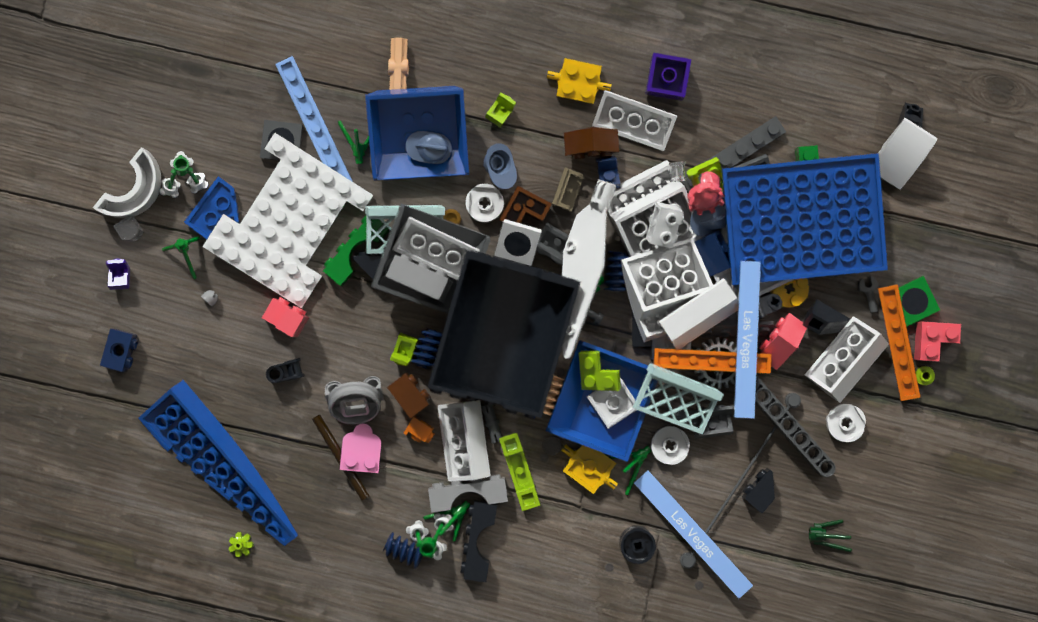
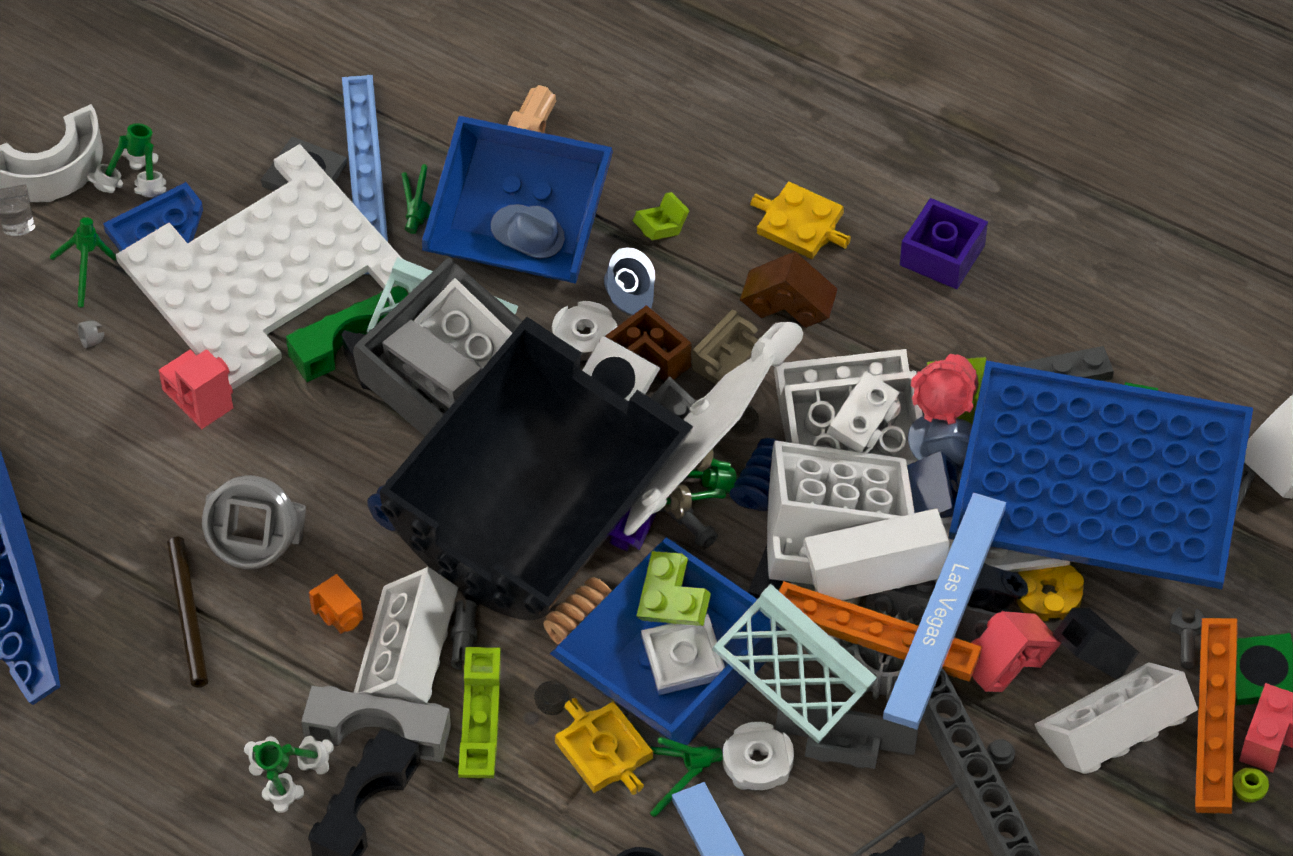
camera: 20 degrees right, 35 degrees down
(286, 371) = (157, 460): black piece -> none
(360, 450) = (225, 607): bright pink plate -> none
(403, 550) = (227, 774): dark blue piece -> none
(404, 349) = (363, 483): lime bracket -> none
(409, 395) = (346, 540): reddish brown brick -> none
(458, 513) = (345, 751): green plant -> none
(608, 170) = (810, 324): dark blue slope -> none
(635, 120) = (875, 289): white slope -> none
(678, 171) = (913, 355): clear bush -> none
(855, 428) = (1079, 832): white plate -> none

